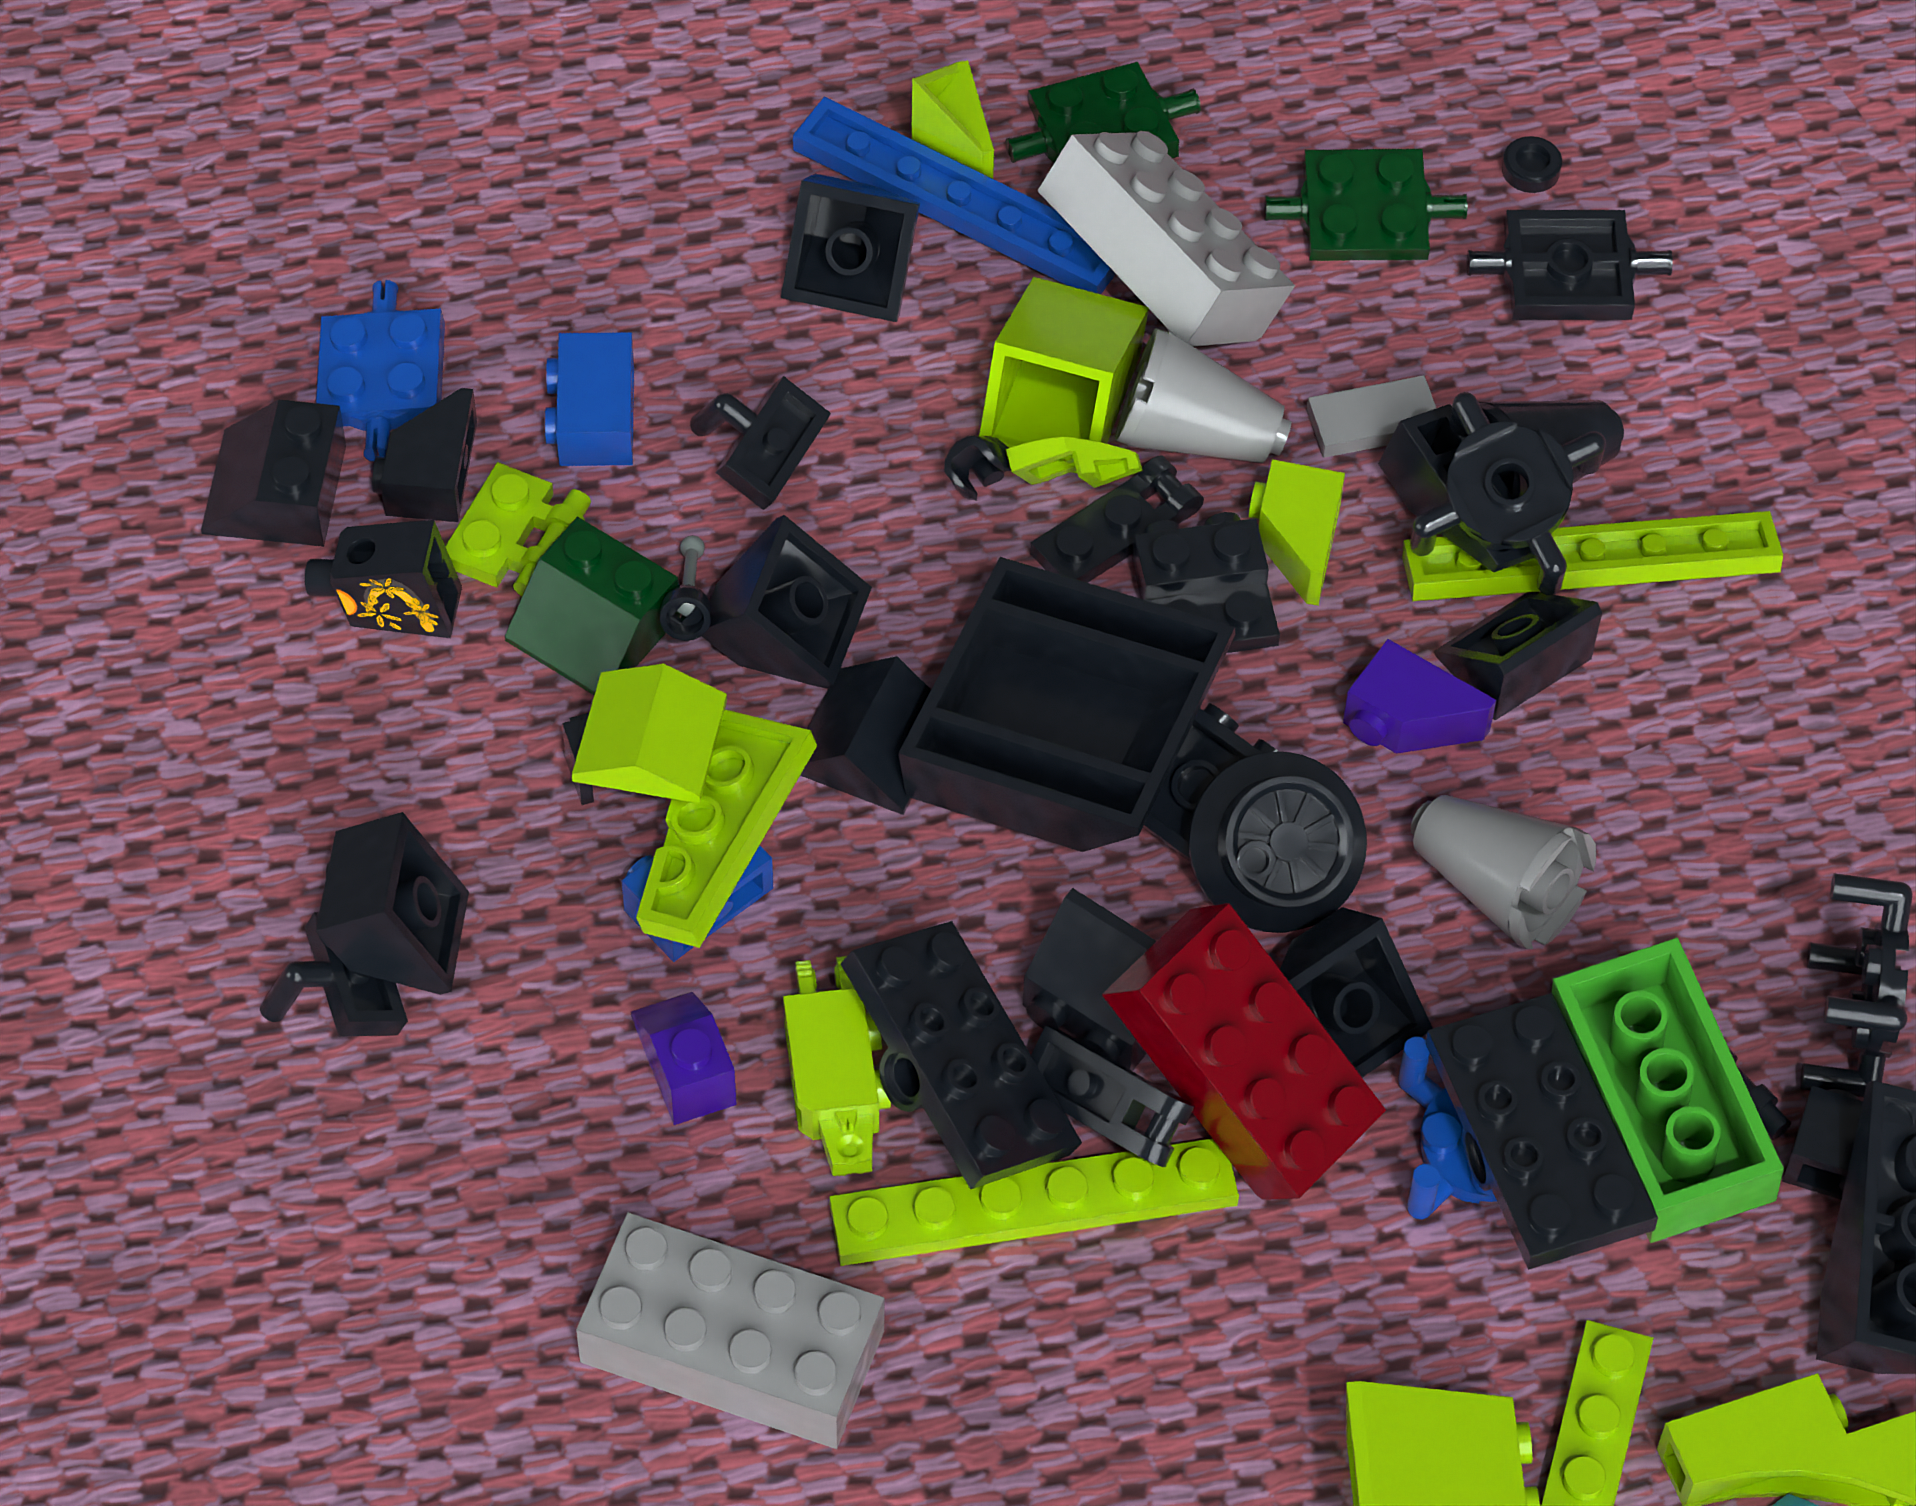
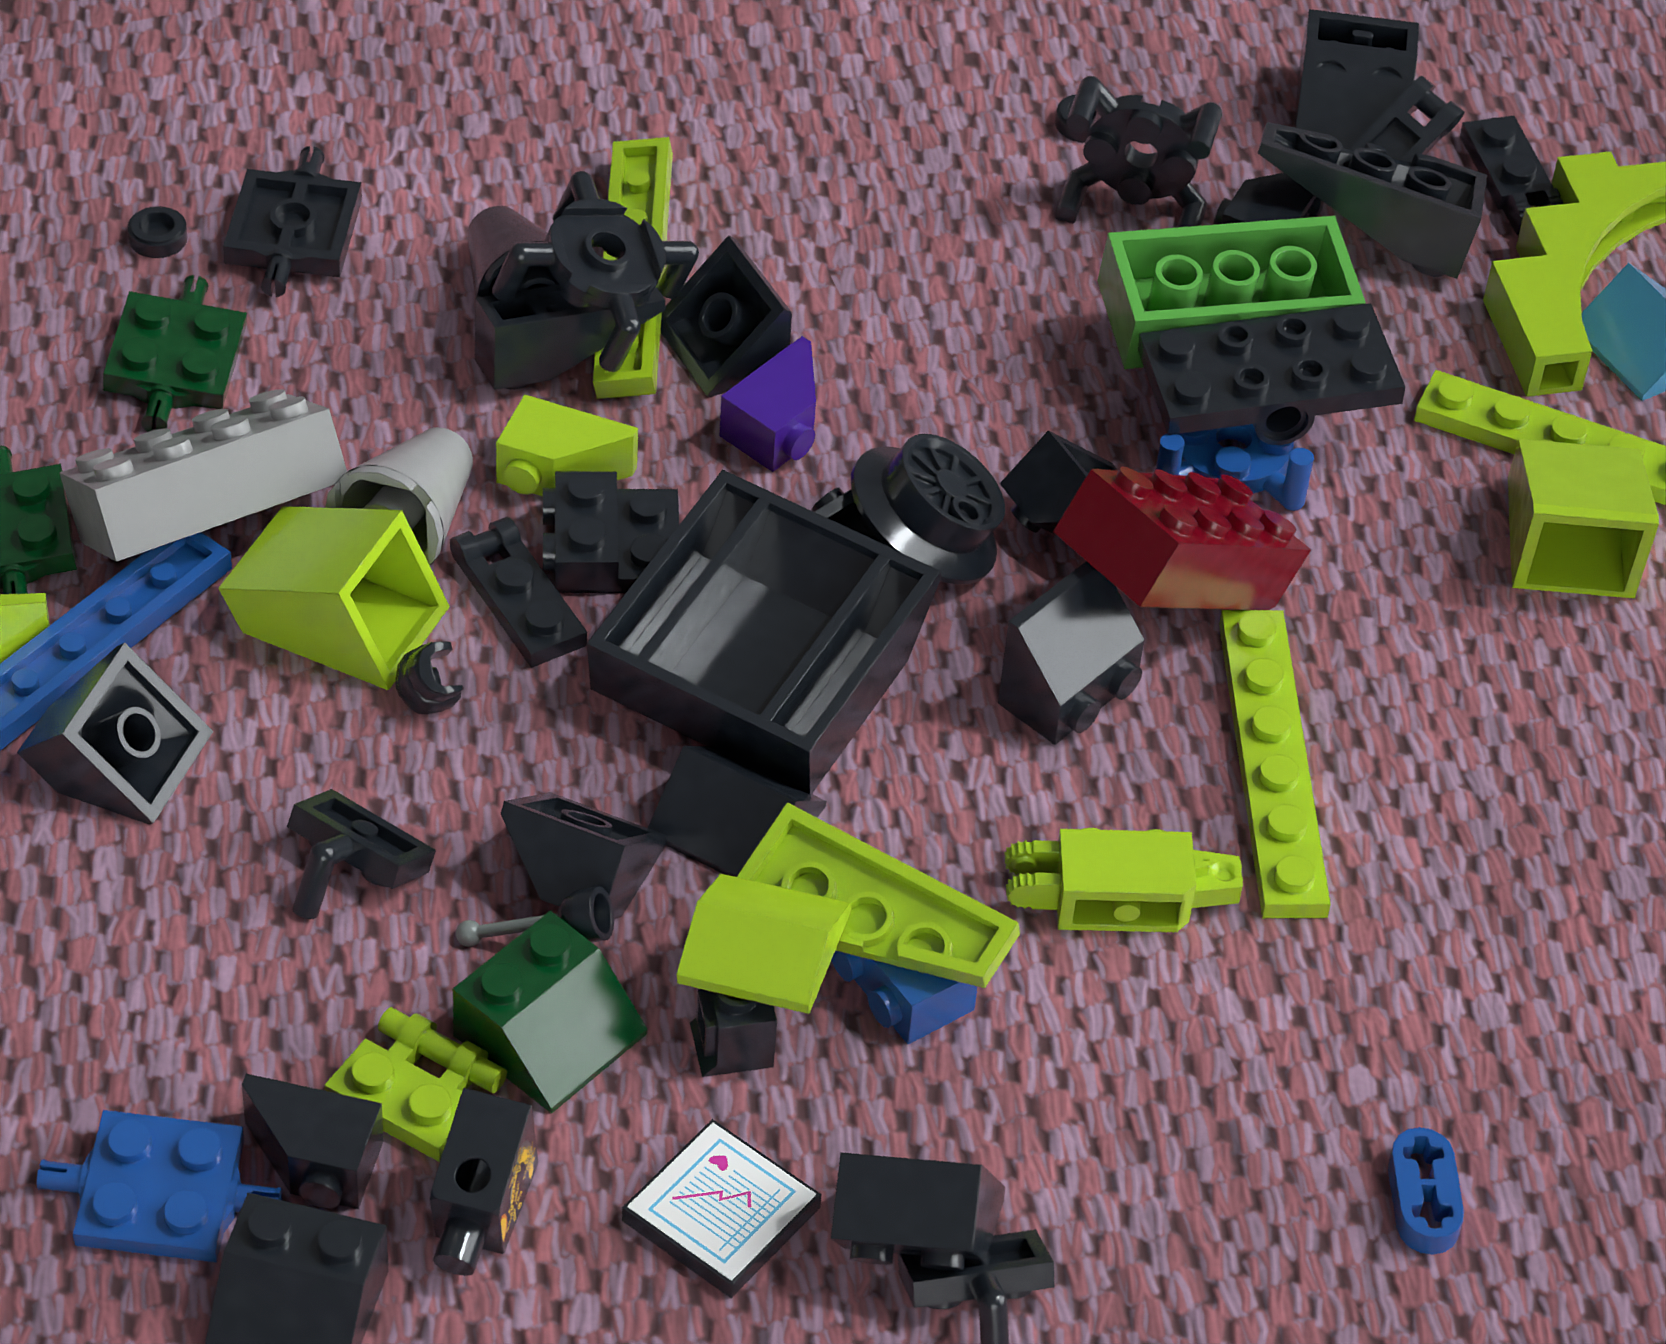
camera: 85 degrees left, 10 degrees down
(412, 768) = (721, 1208): none -> white tile
(501, 1358) = (1411, 1191): none -> blue beam
(593, 399) = (265, 983): blue brick -> none
(686, 1057) = (1098, 994): dark purple slope -> none
(731, 1330) = (1415, 989): light grey brick -> none
(958, 1055) = (1151, 763): black plate -> none
(1056, 456) = (457, 580): lime slope -> none
(1109, 1096) = (1188, 673): black plate -> none
(1366, 415) = (430, 386): light grey tile -> none
(1507, 864) = (970, 365): light grey cone -> none

